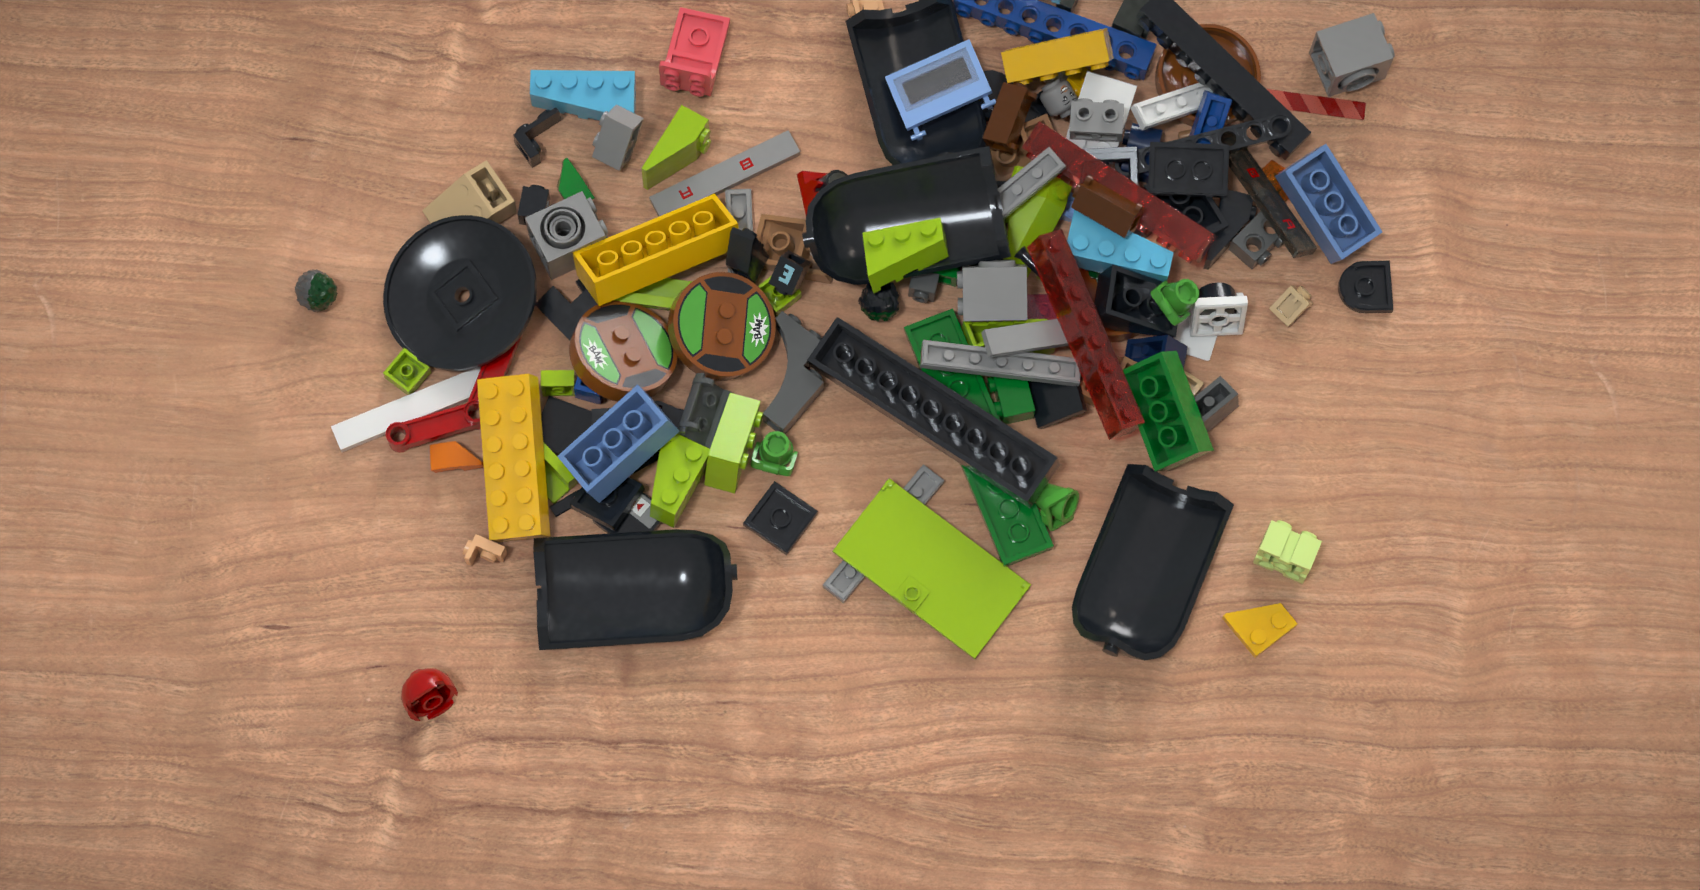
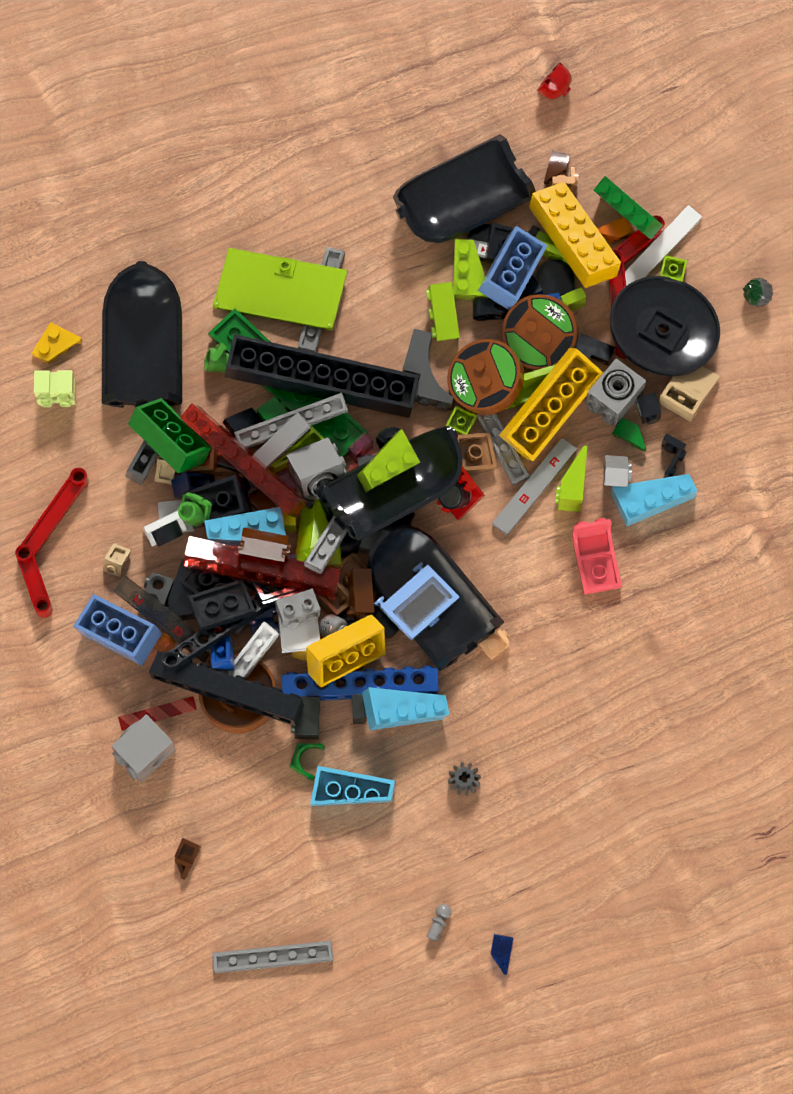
camera: 160 degrees right, 0 degrees up
(424, 466) = (628, 207): none -> green brick
(483, 579) = (557, 165): none -> reddish brown slope
(703, 410) = (470, 320): dark grey piece -> none
(745, 254) = (491, 426): black slope -> none
(775, 454) = (413, 317): bright green piece -> none
(780, 518) = (391, 282): black tile -> none
(789, 273) = (459, 421): black brick -> none
(922, 308) = (360, 447): none -> clear pink piece
(1367, 287) = (70, 596): black tile -> none
(1379, 374) = (40, 534): none -> red piece

